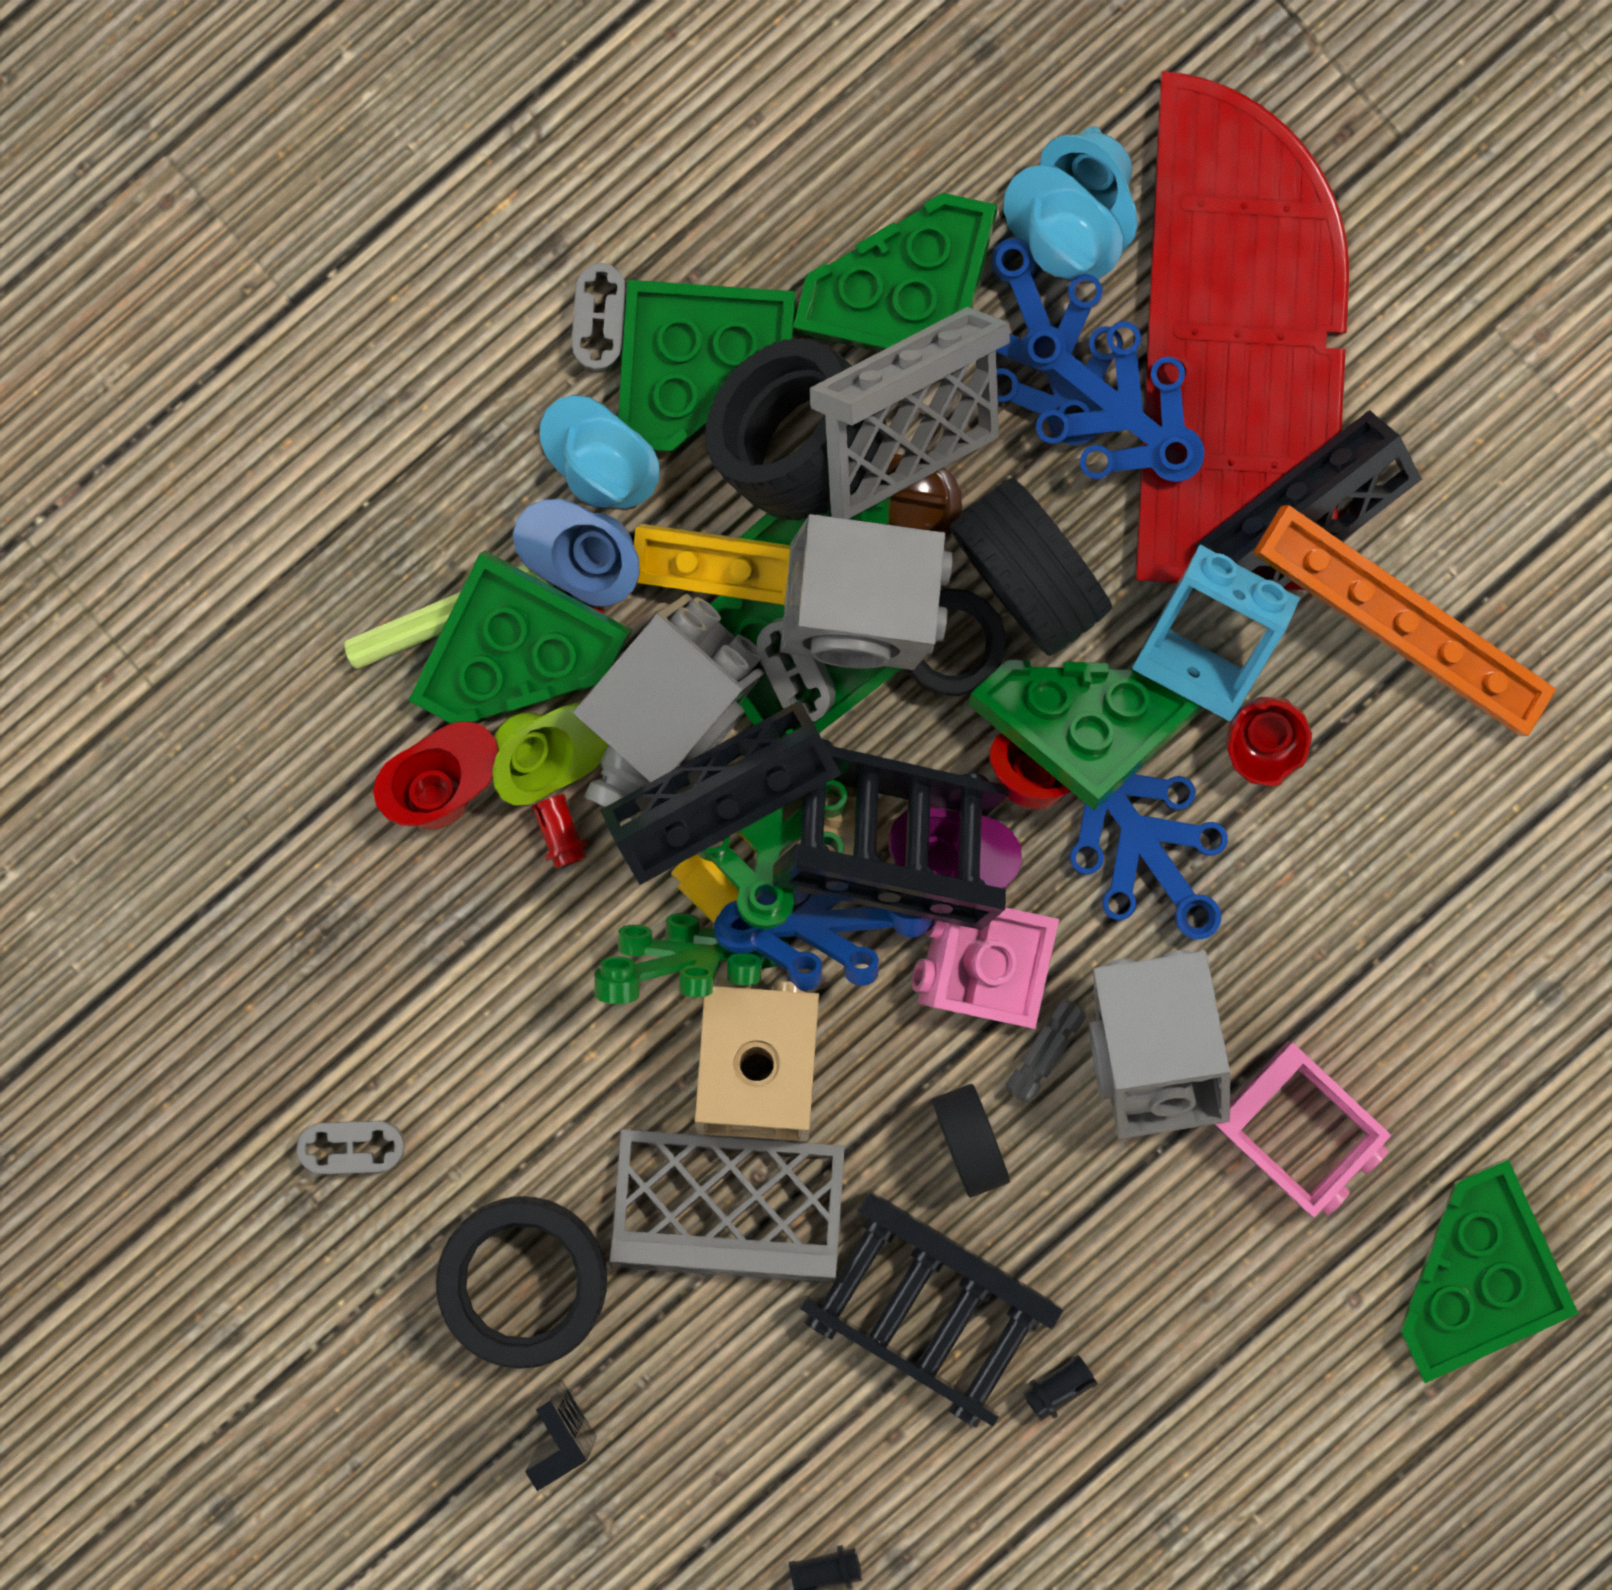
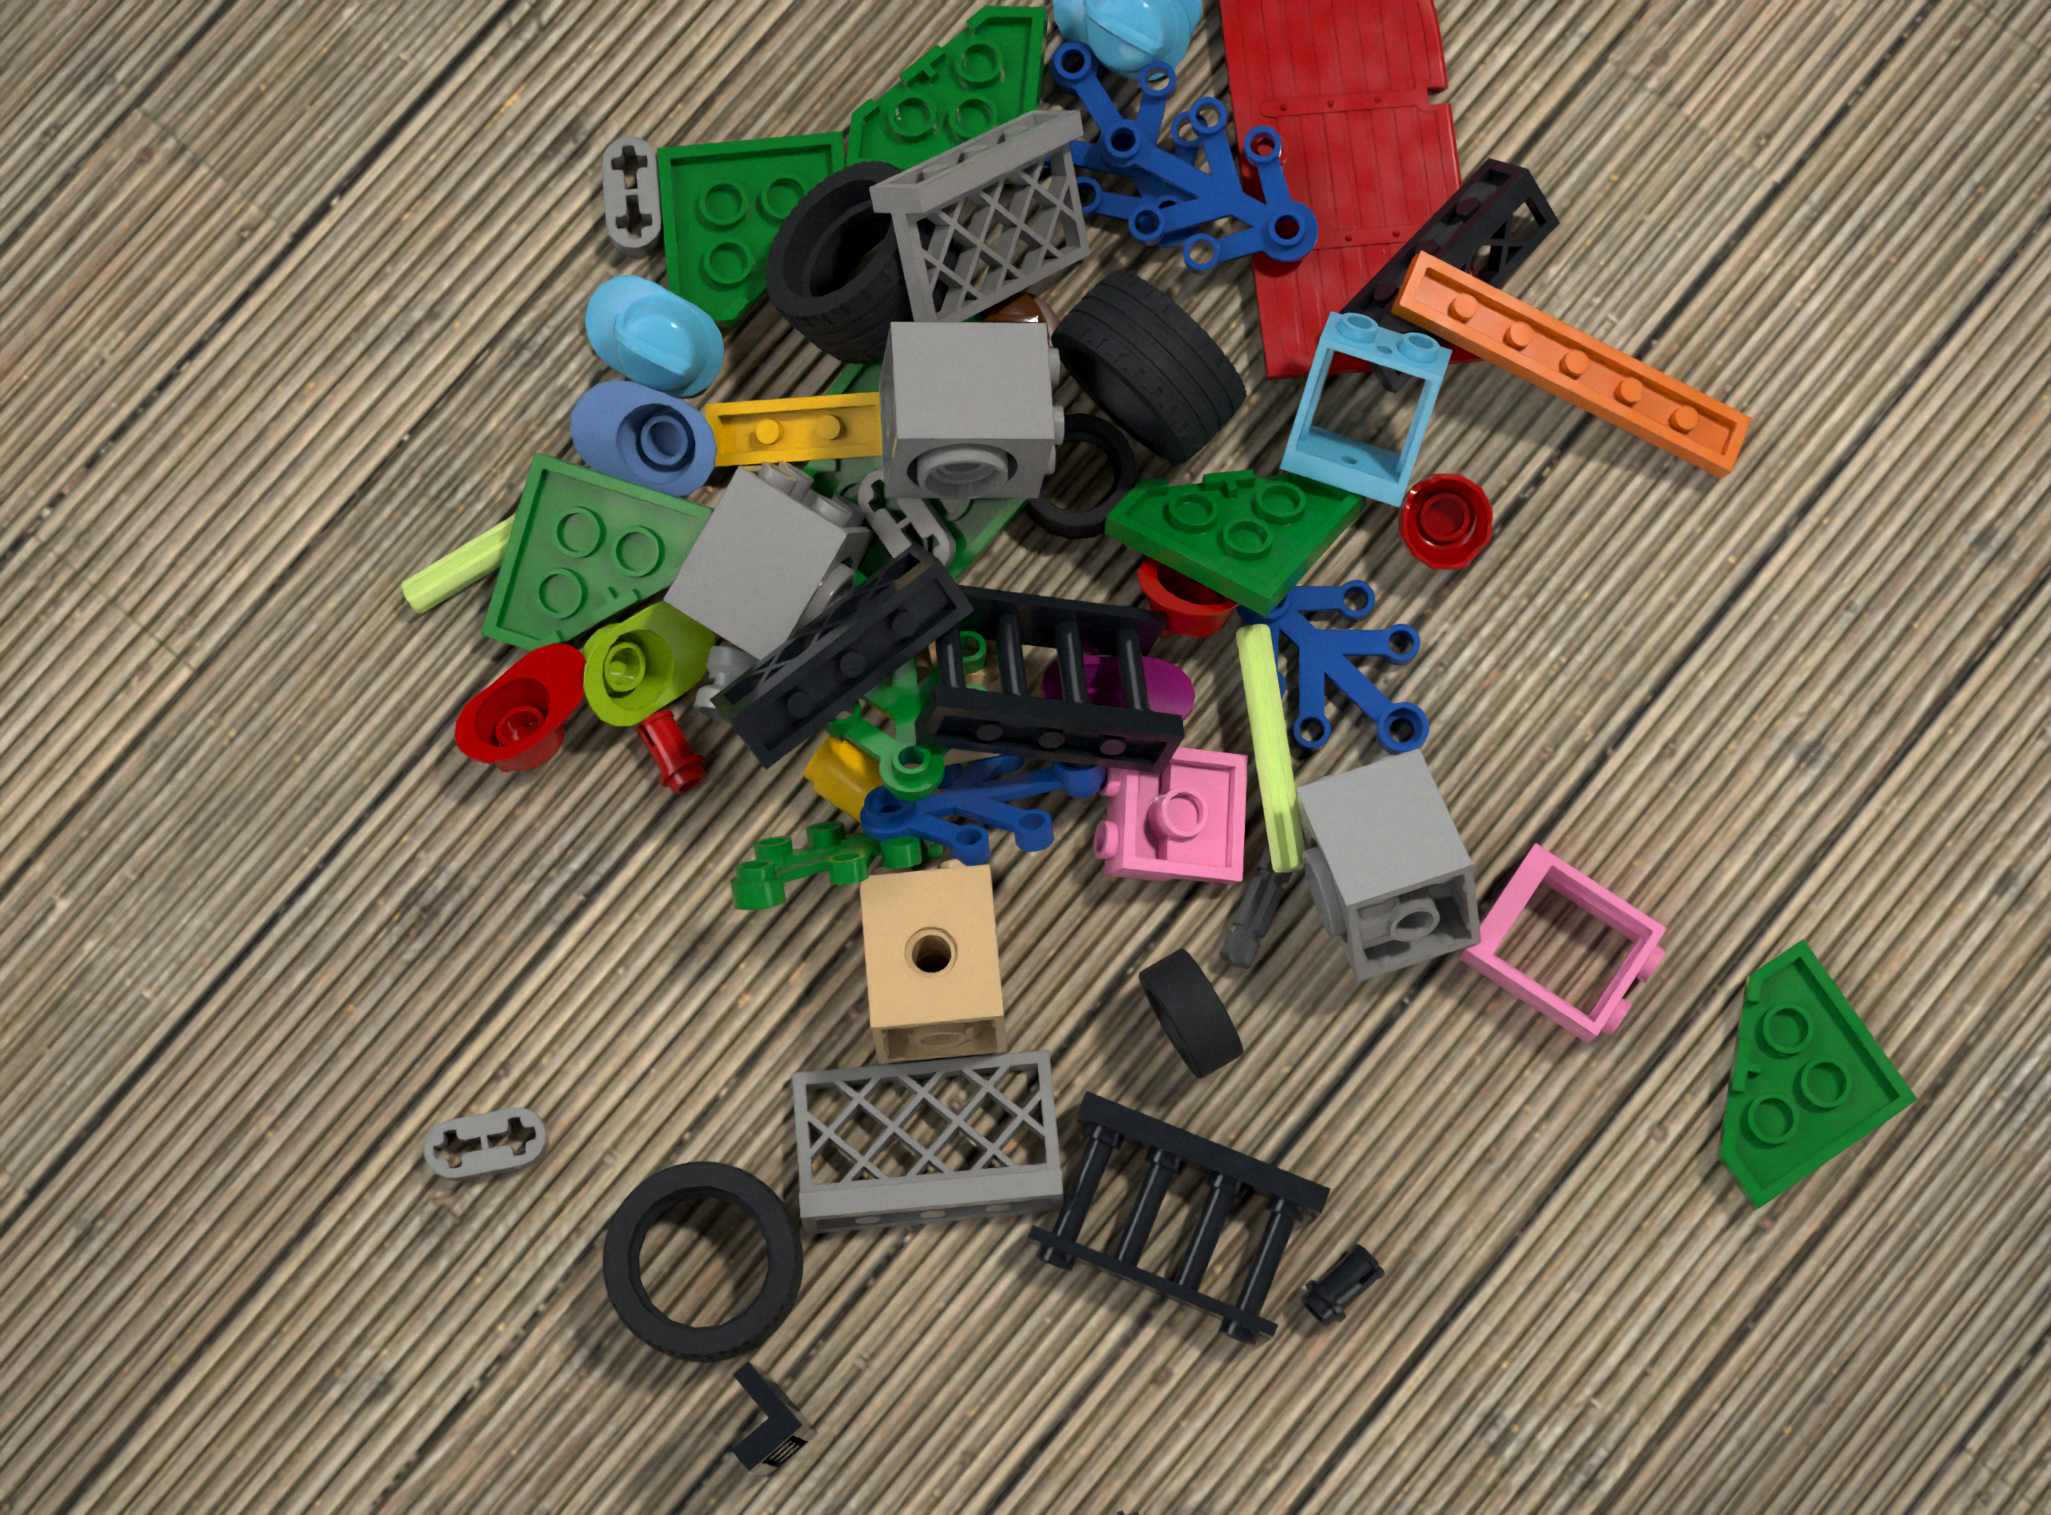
camera: 10 degrees left, 10 degrees down
(1080, 917) = (1271, 748): none -> yellowish green axle

